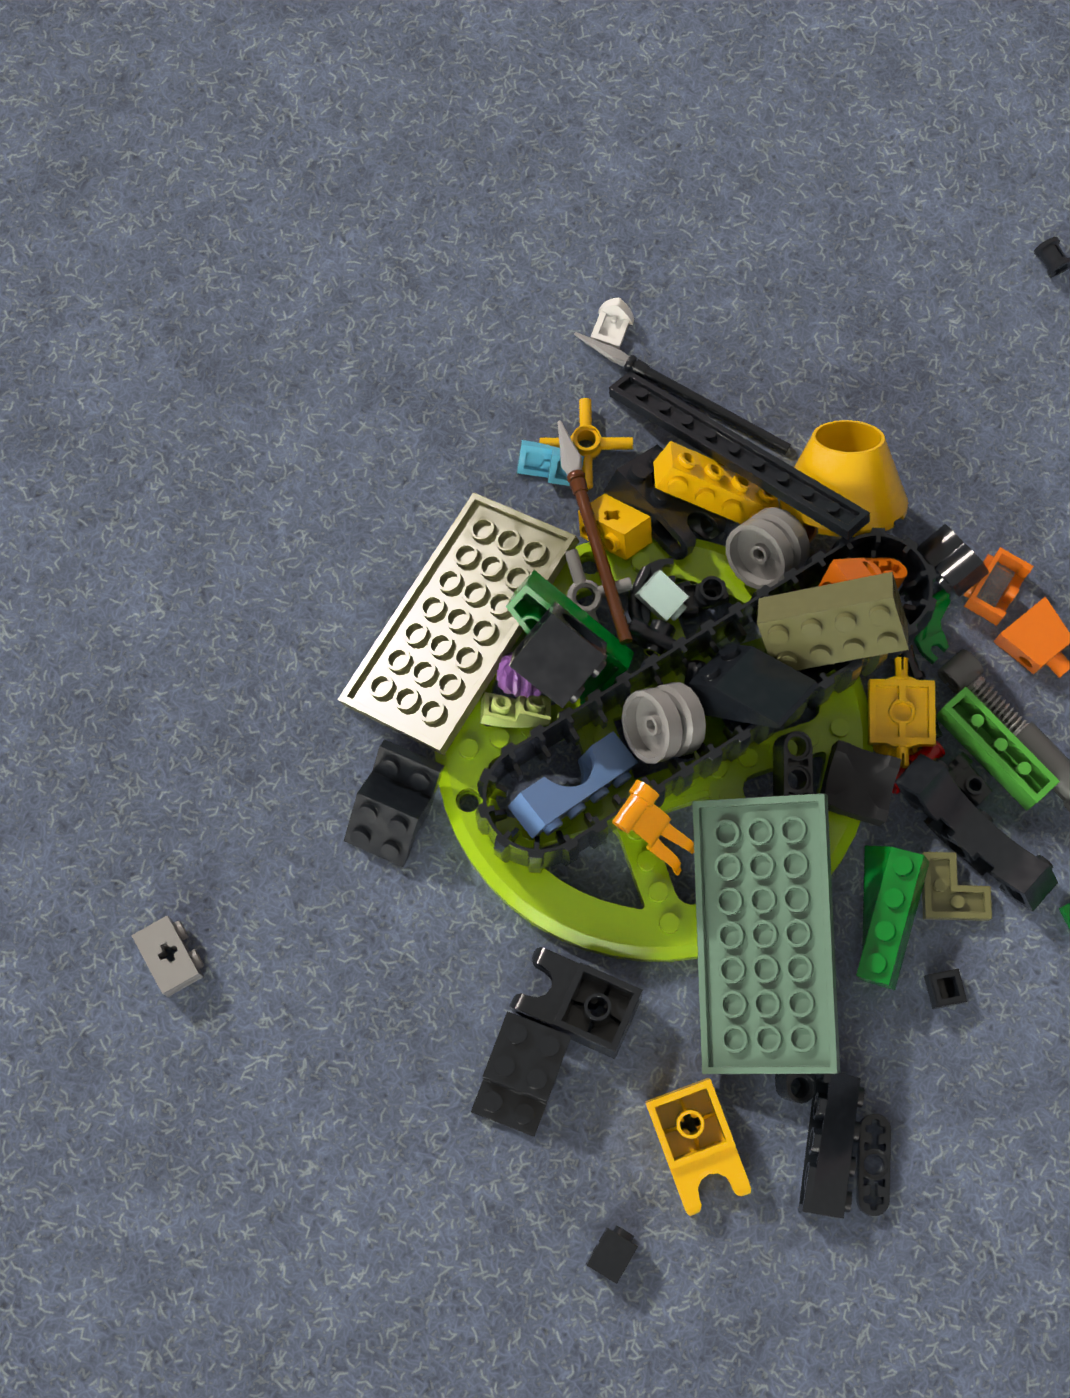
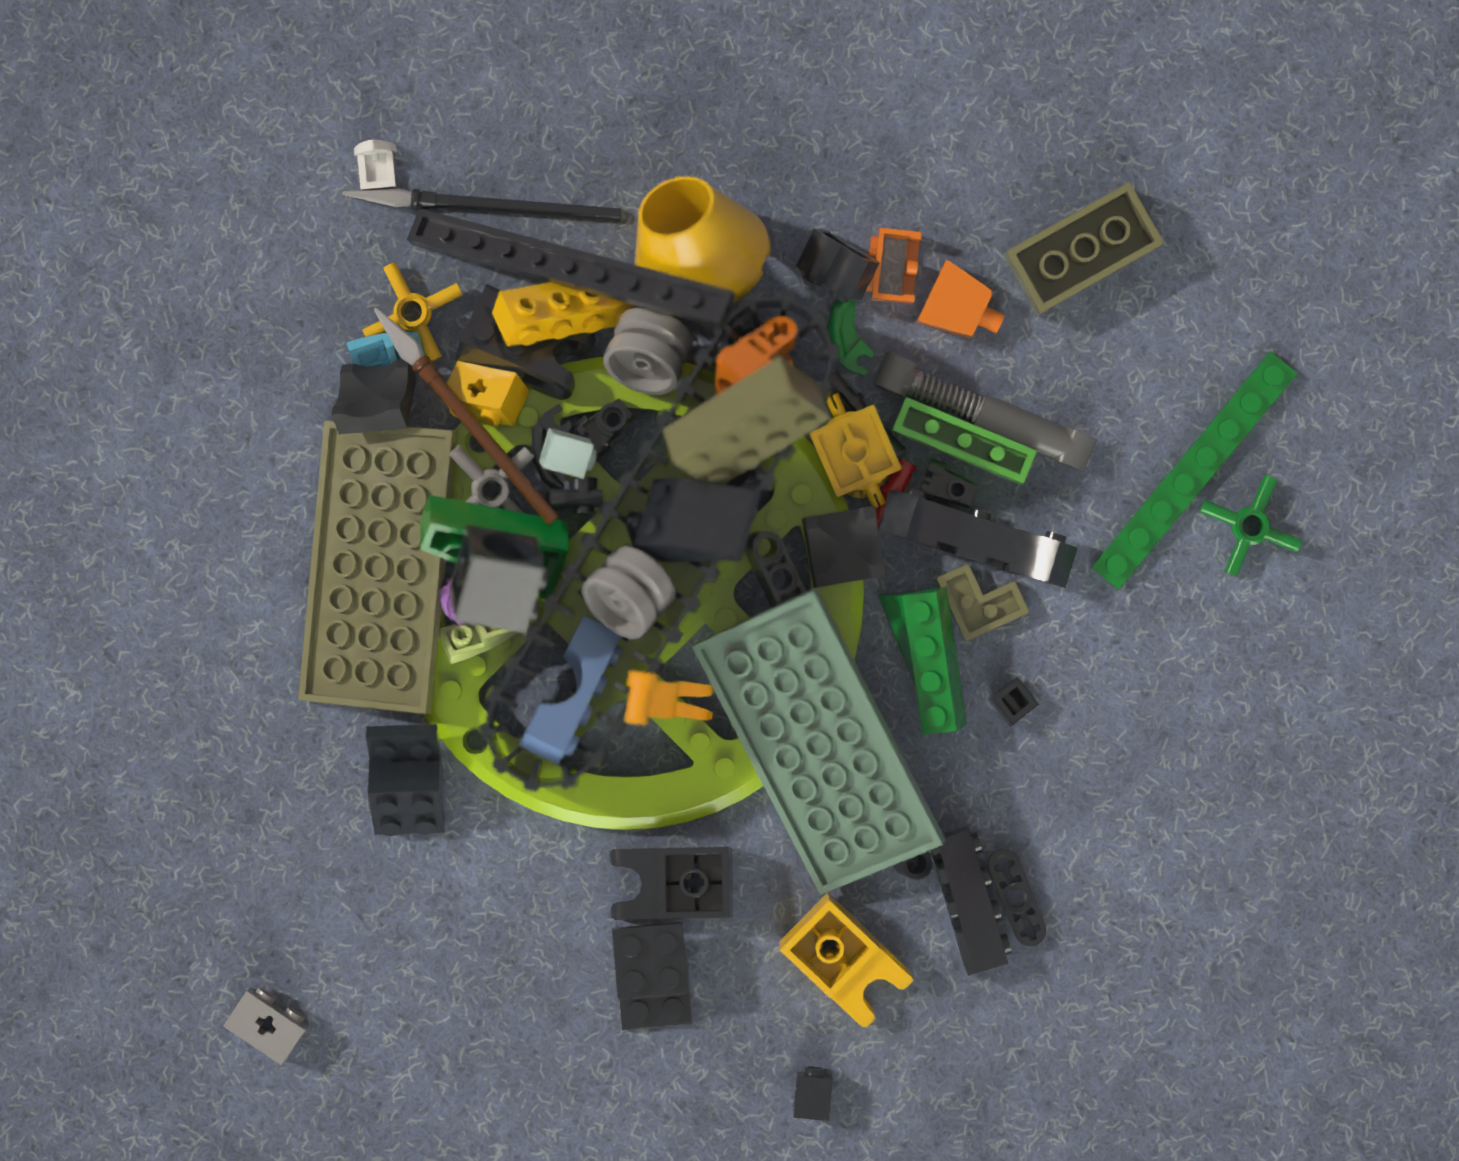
camera: 20 degrees left, 15 degrees up
(523, 488) = (374, 397): none -> black brick

